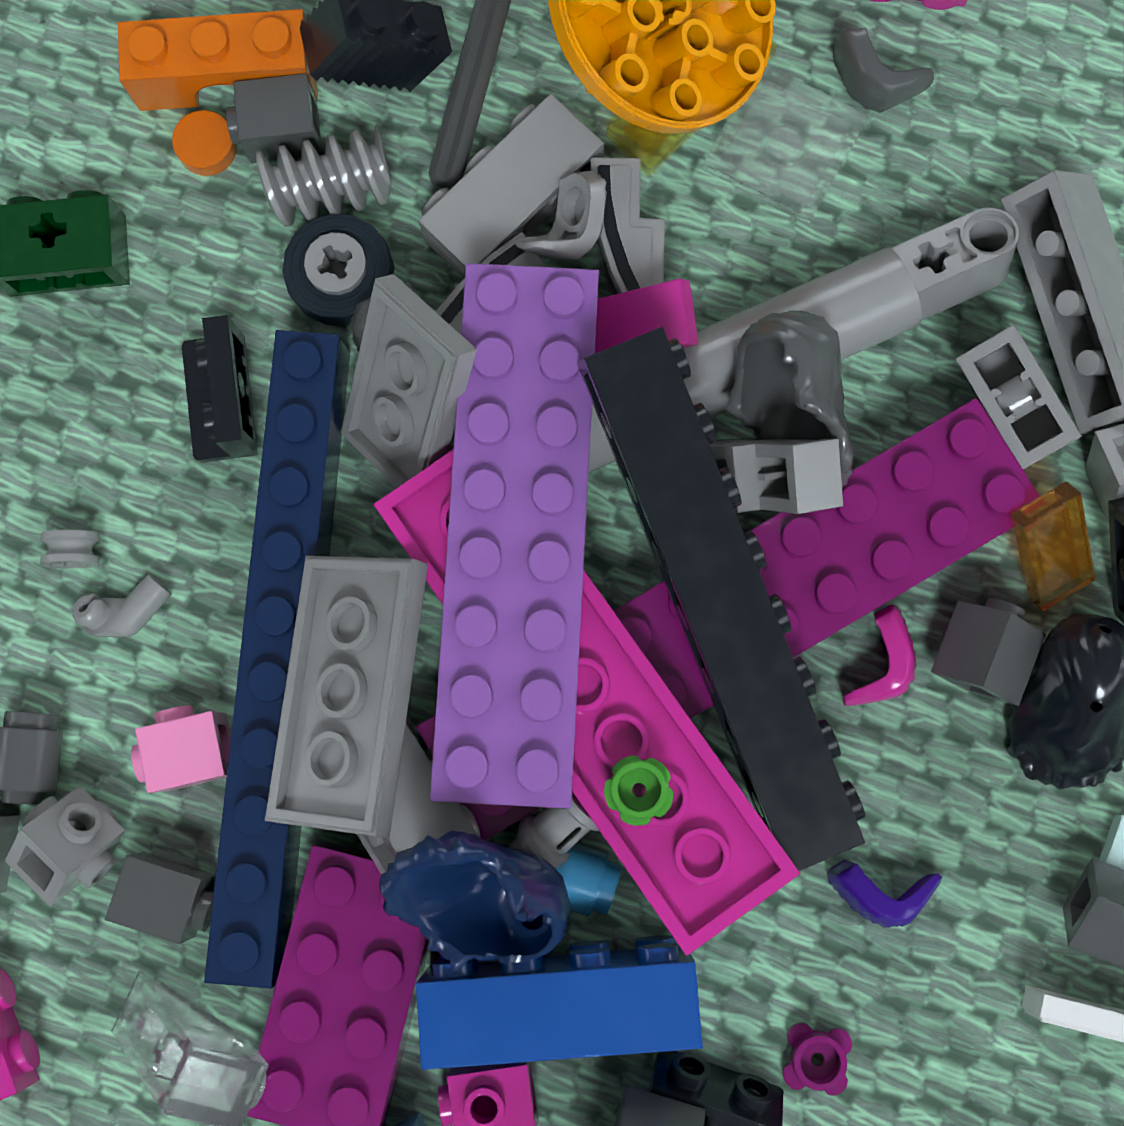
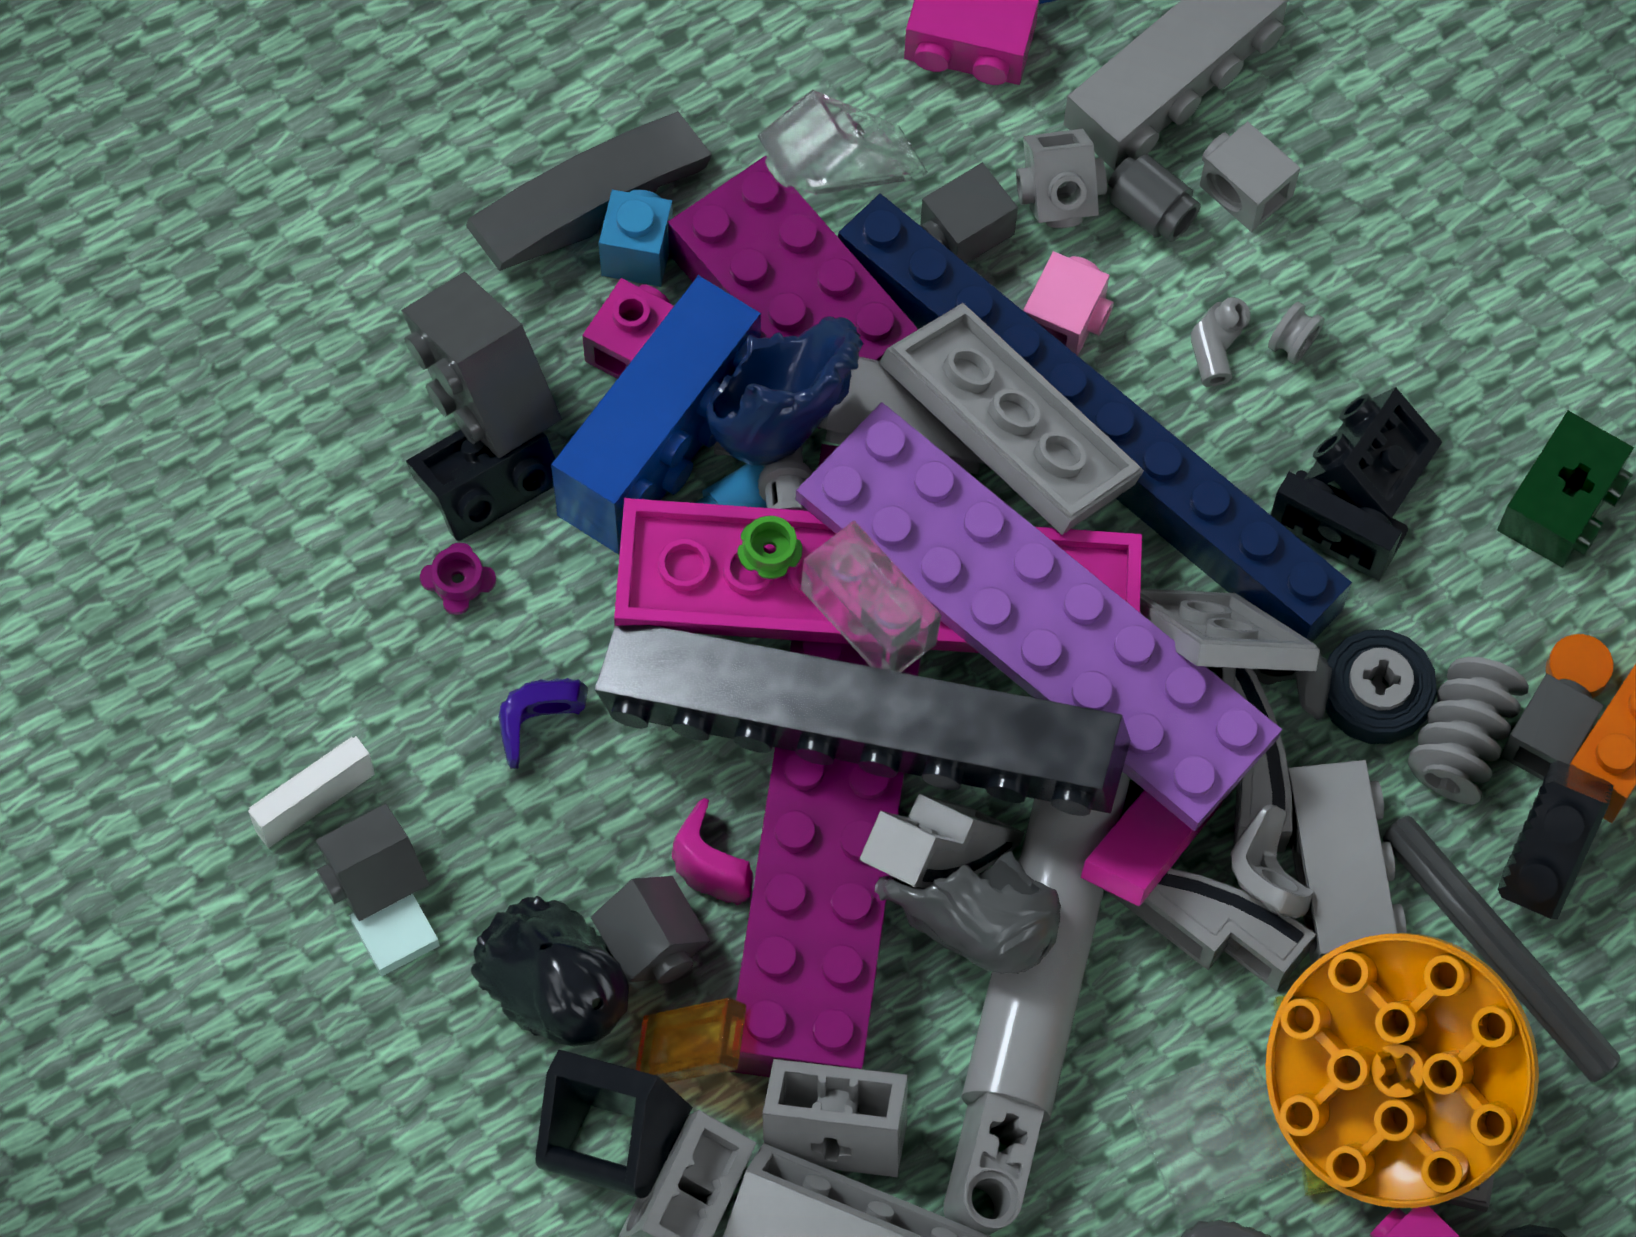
camera: 120 degrees right, 15 degrees down
(138, 407) = (1377, 451): none -> black bracket
(627, 659) = (870, 600): none -> clear brick

